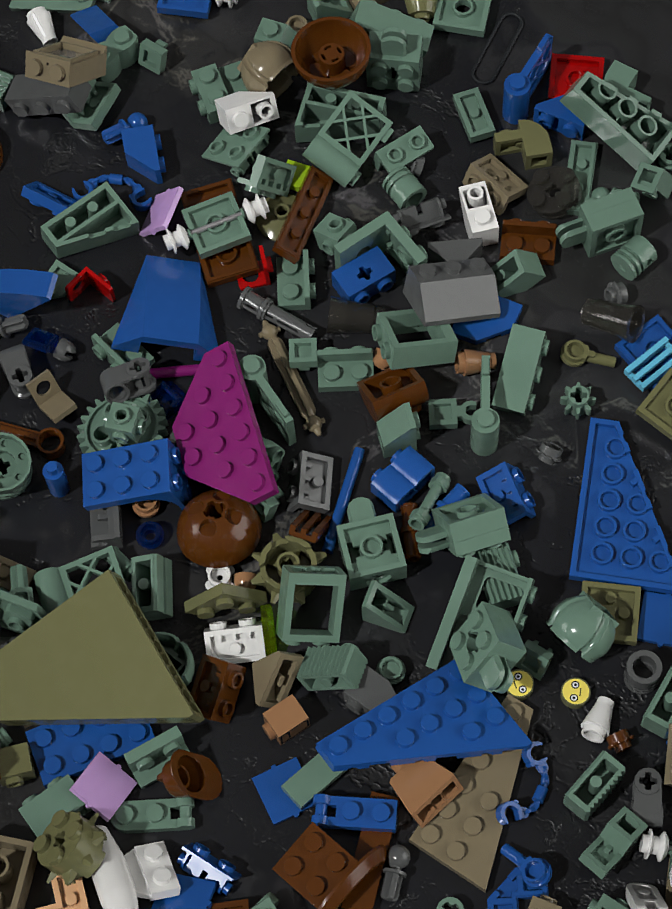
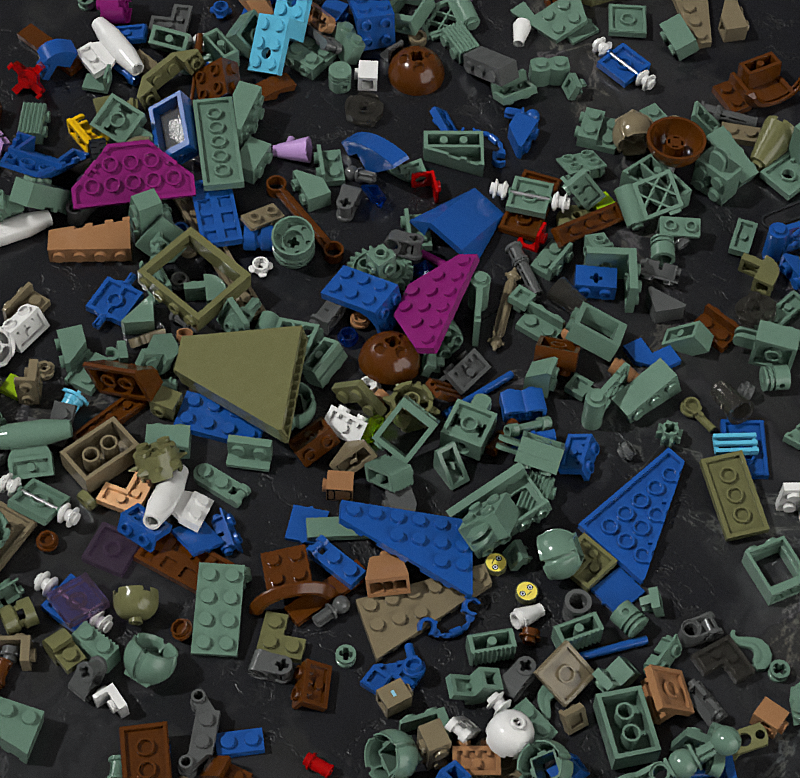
camera: 30 degrees right, 10 degrees down
(54, 401) = (354, 232): dark tan bracket -> none
(56, 479) = (318, 269): blue cylinder -> none
(63, 349) = (383, 208): dark grey hinge -> none
(67, 62) = (514, 53): dark tan window -> none
(95, 23) = (551, 46): blue slope -> none
(103, 786) = (204, 446): lavender piece -> none
(161, 211) = (503, 170): lavender piece -> none
(191, 776) = (258, 475): reddish brown piece -> none
(246, 110) = (601, 146): white slope -> none
(391, 669) = (425, 503): sand green plate -> none
(452, 291) = (640, 320): dark grey slope -> none
(479, 213) = (696, 291): white slope -> none
(500, 181) = (722, 282): dark tan bracket -> none

